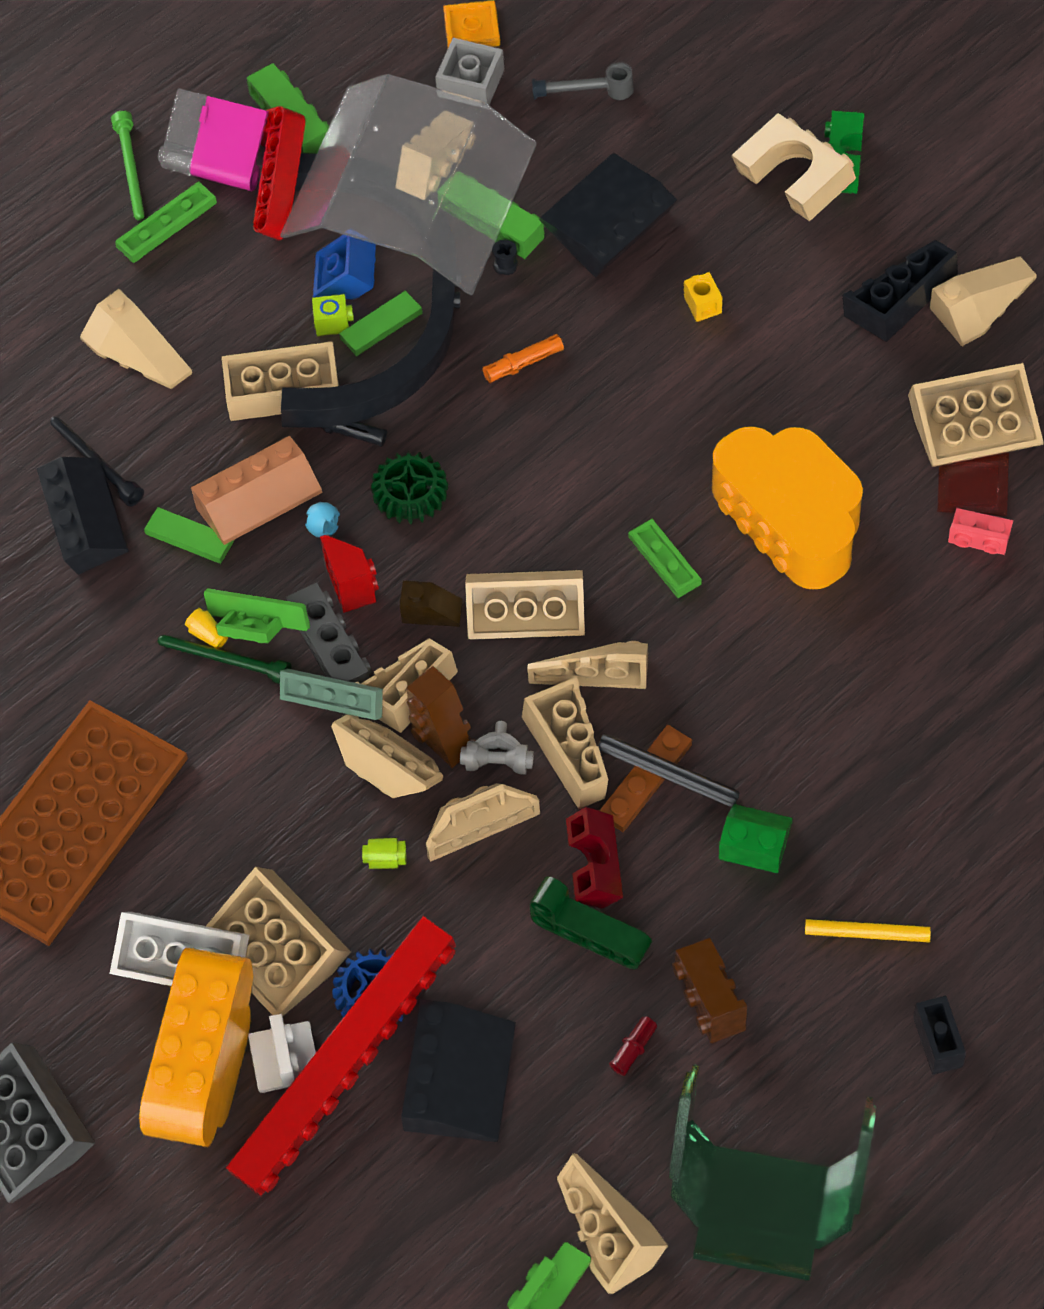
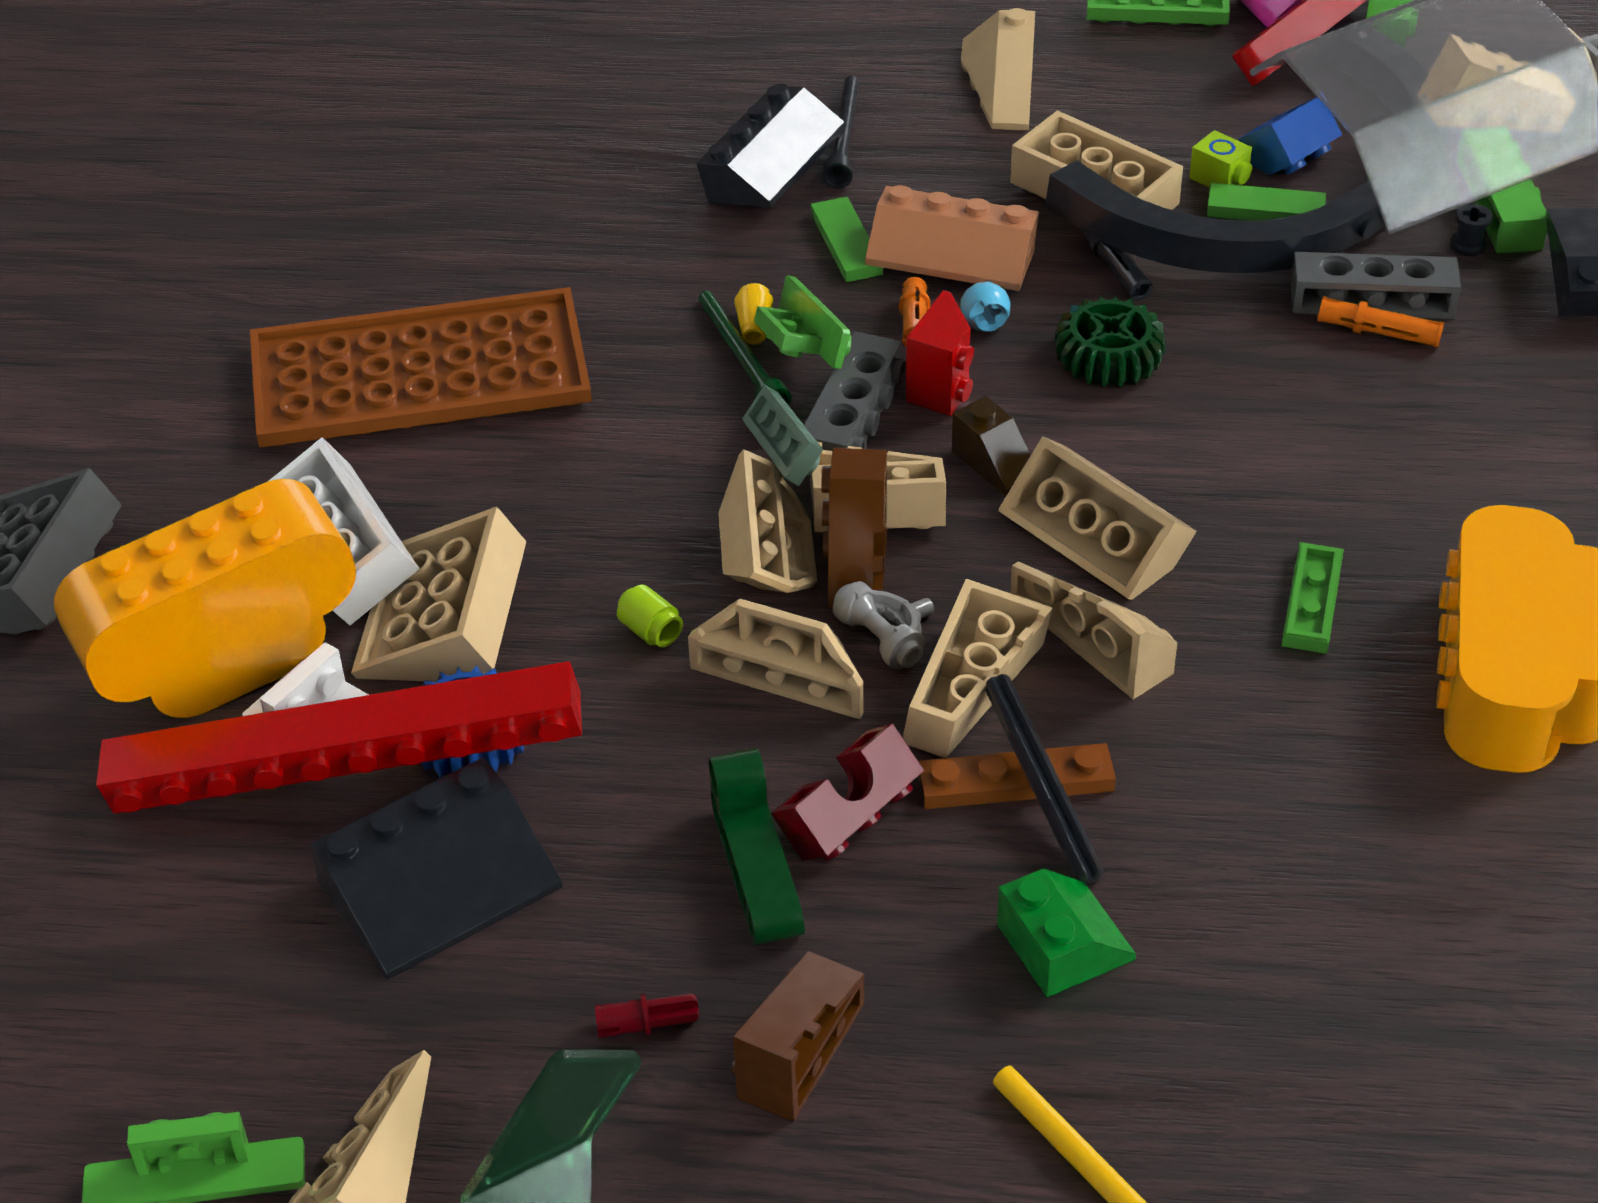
camera: 45 degrees right, 15 degrees down
(288, 552) = (912, 306): none -> orange pin
(512, 326) = (1387, 282): none -> dark grey brick

